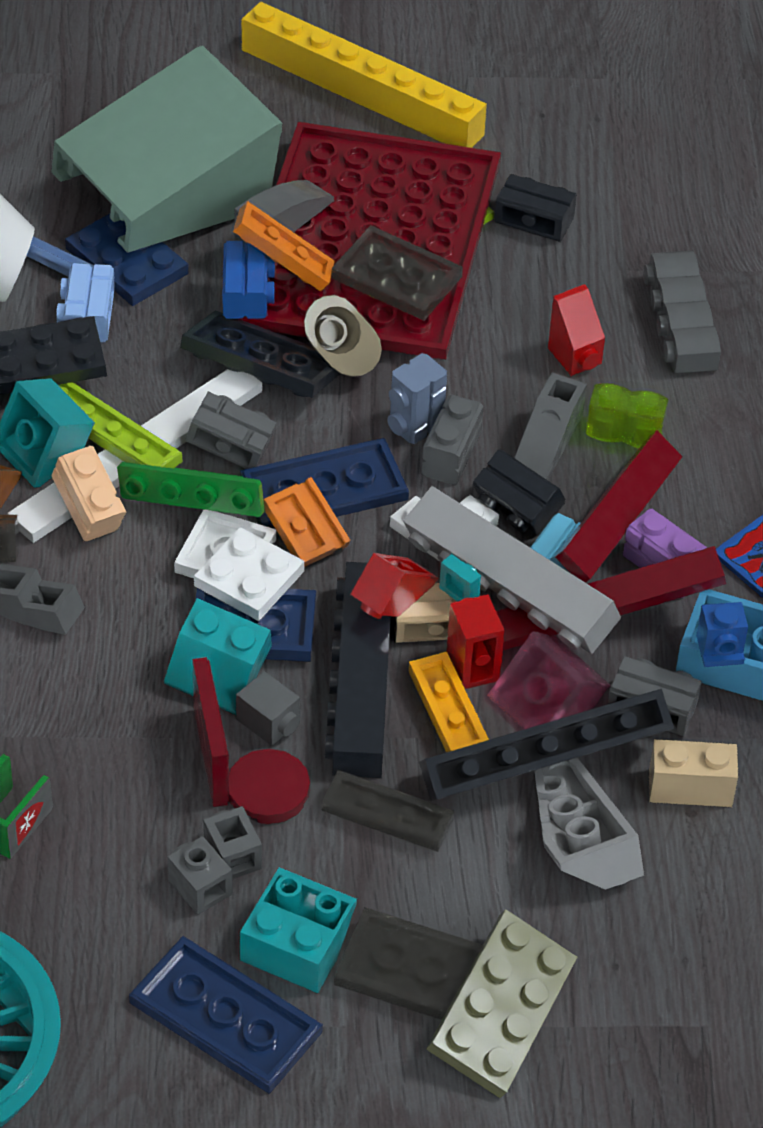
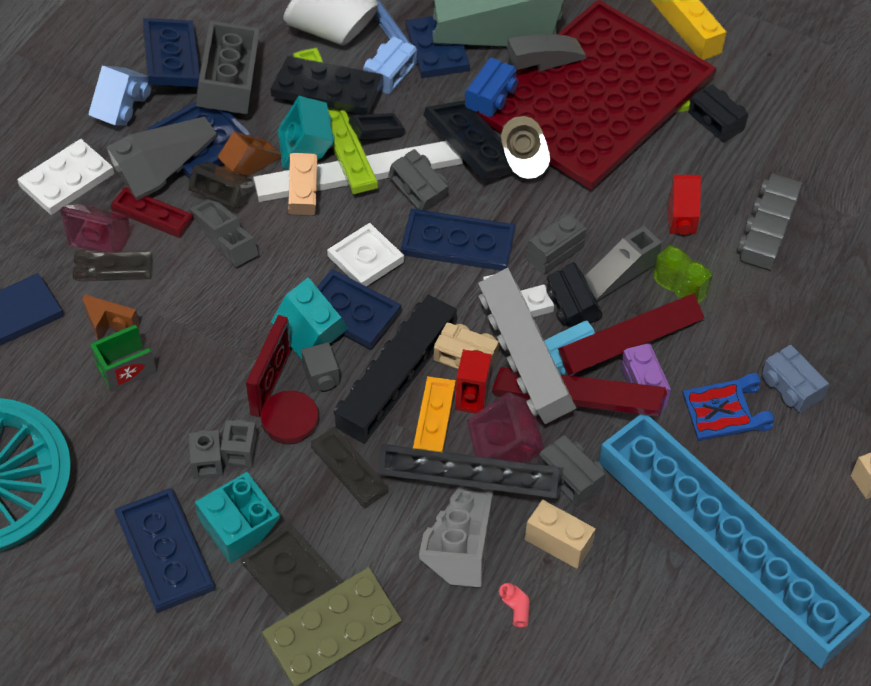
camera: 30 degrees right, 5 degrees up
(125, 385) = (376, 126): none -> black tile
(191, 489) = (368, 207): green bracket -> none
(249, 573) = (365, 276): white plate -> none
(283, 246) = (523, 74): orange plate -> none
(306, 522) = (424, 258): orange plate -> none
(391, 585) = (440, 321): red slope -> none
(397, 272) = (590, 120): clear smoke plate -> none
(416, 397) = (545, 204): sand blue brick -> none
(459, 579) = (486, 336): teal plate -> none
(694, 873) = (518, 602): none -> coral arm
(722, 634) = (628, 449): blue brick -> none

